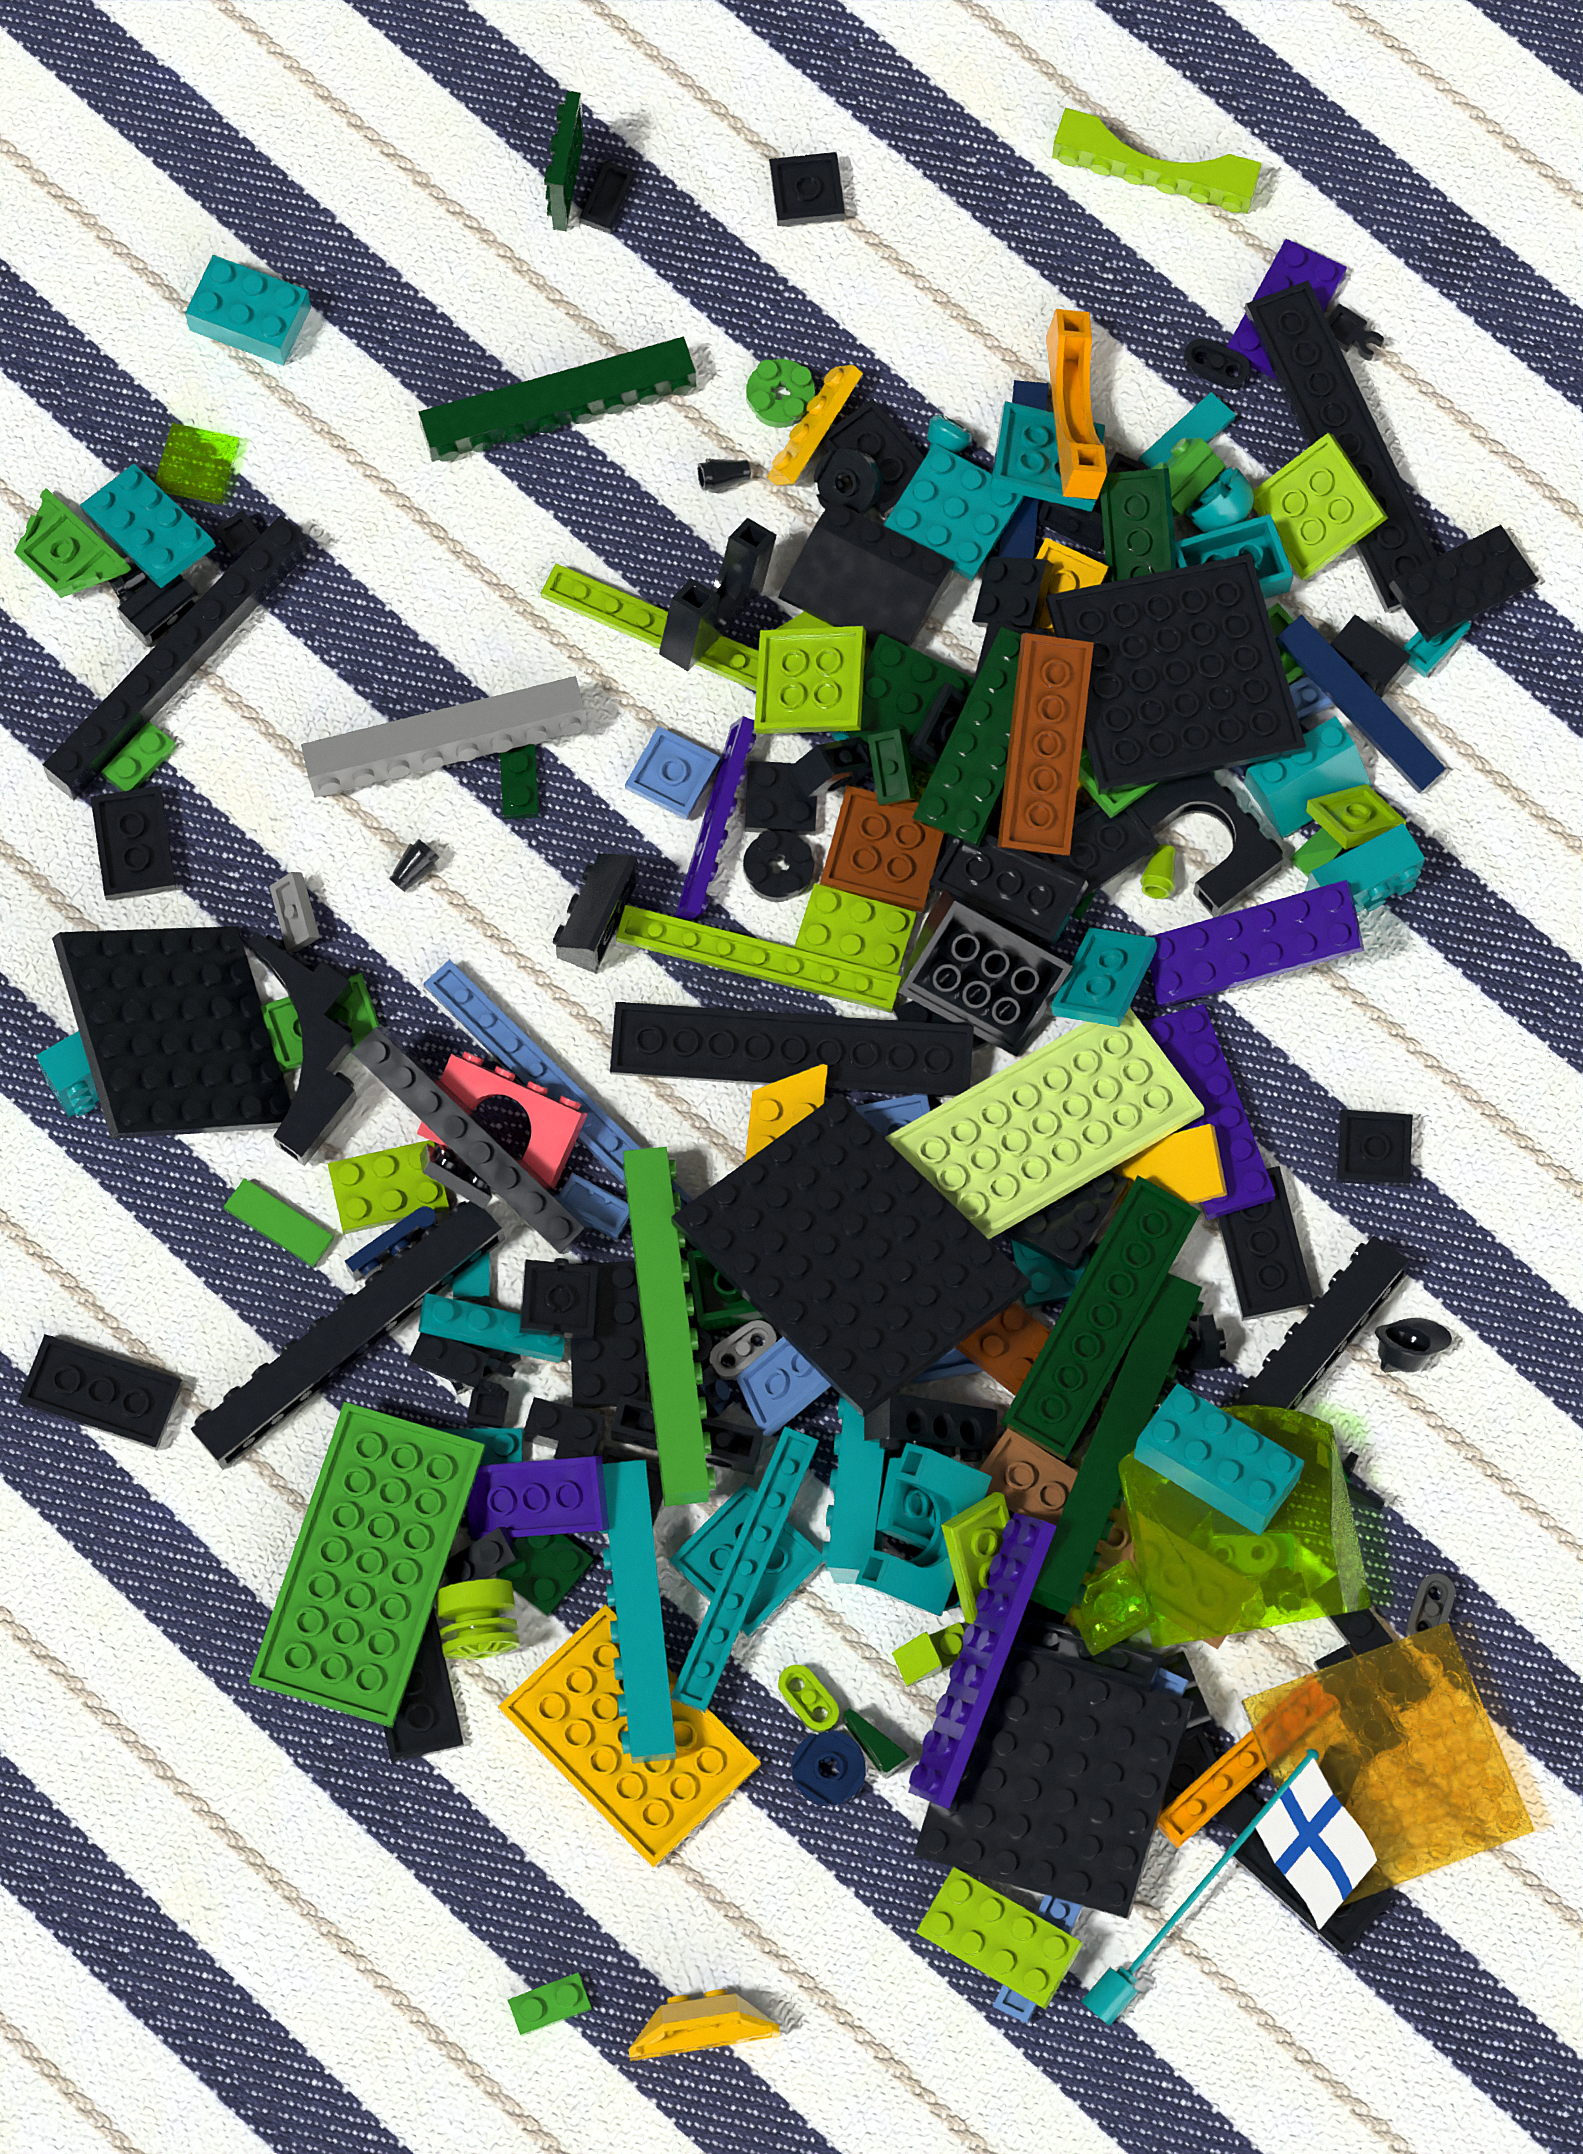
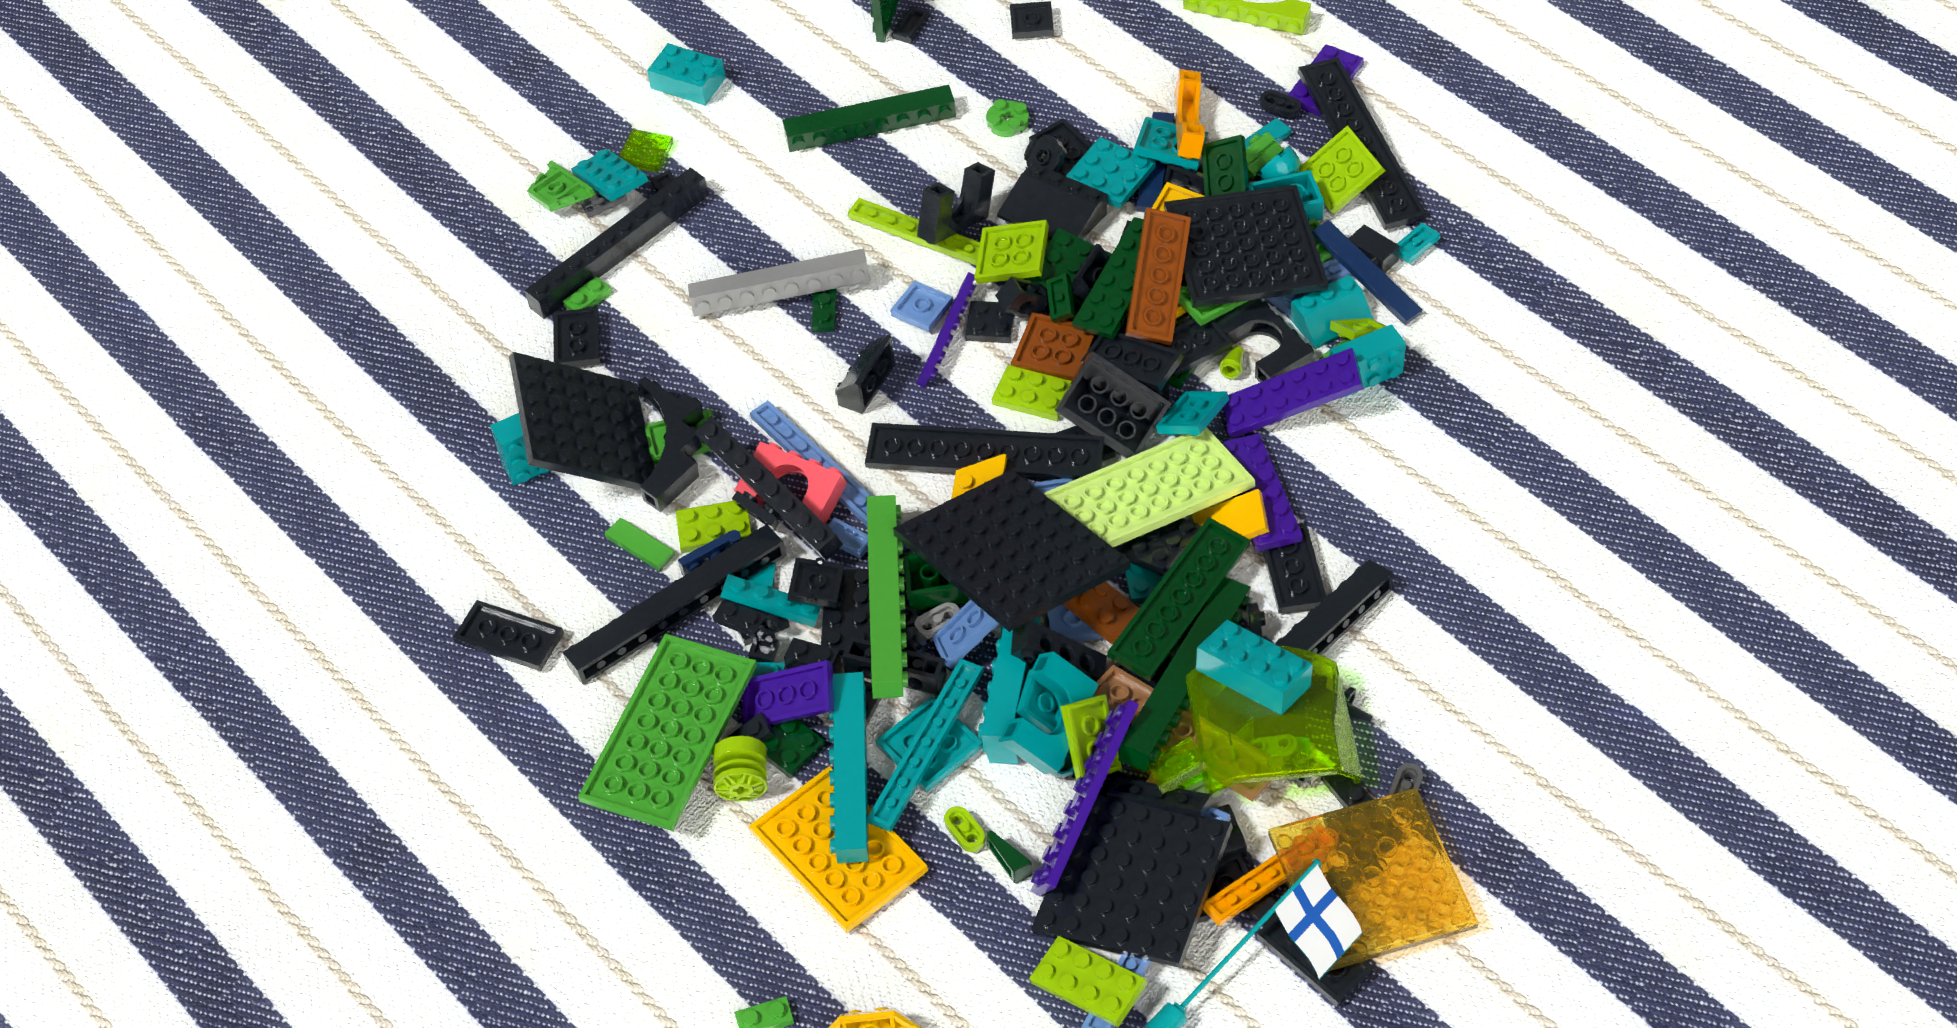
camera: 10 degrees right, 20 degrees down
(156, 609) = (607, 214): black brick -> none
(294, 911) = (672, 372): light grey plate -> none
(413, 865) = (752, 351): black cone -> none
(427, 1714) = (699, 827): black tile -> none
(722, 473) = (967, 155): black cone -> none
(758, 958) = (967, 404): lime plate -> none
(774, 846) = (983, 346): black plate -> none
(810, 431) = (1020, 136): yellow plate -> none
(830, 1790) = (980, 886): dark blue plate -> none
(929, 1654) = (1048, 805): lime slope -> none
(948, 434) = (1110, 133): teal cone -> none
(1013, 591) = (1139, 202): black plate -> none
(1350, 332) = (1367, 89): black plate -> none
(1374, 1148) = (1371, 515): black plate -> none
(1409, 1343) = (1390, 628): black piece -> none
(1463, 583) = (1435, 211): black plate -> none

